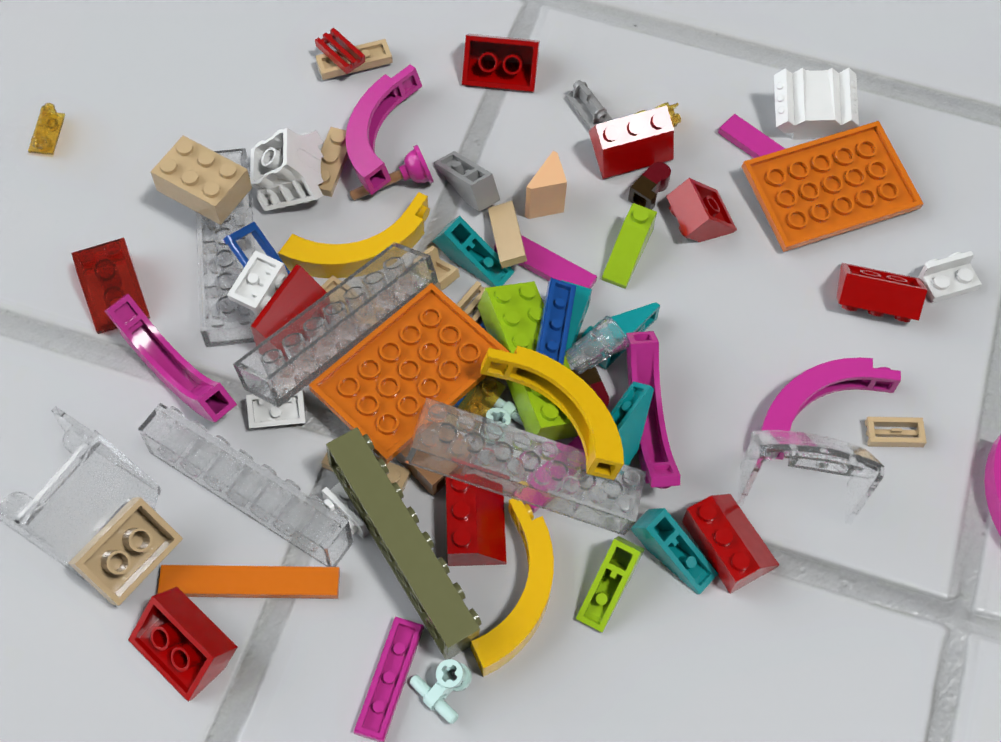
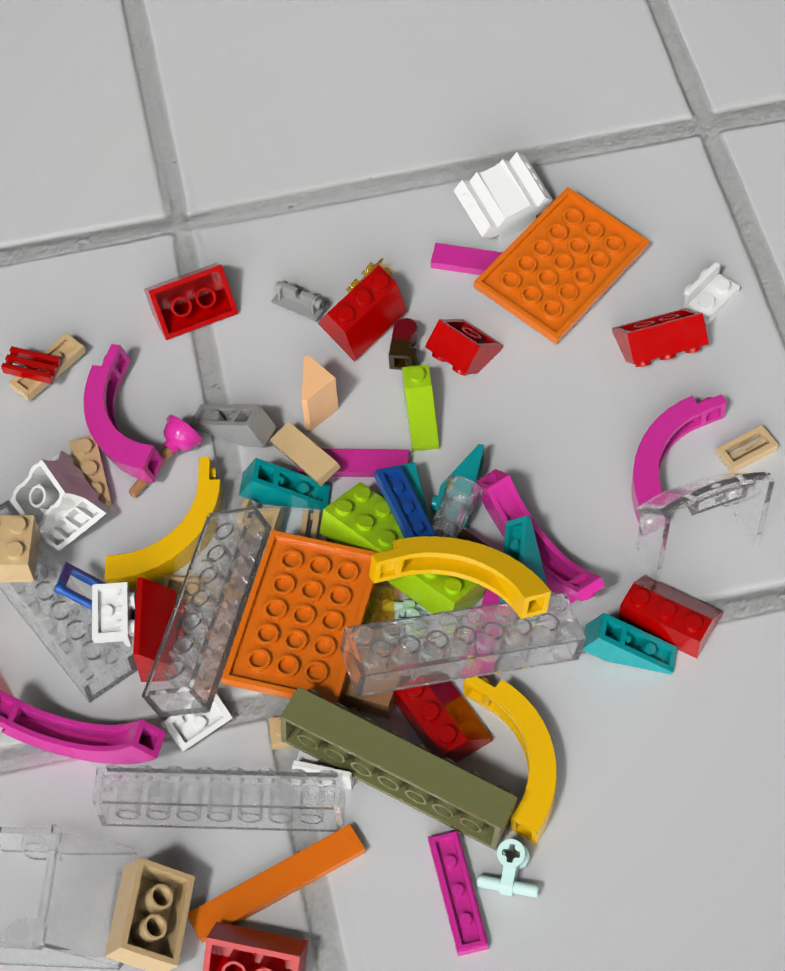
camera: 25 degrees left, 5 degrees down
(610, 583) = (594, 705): lime slope -> none

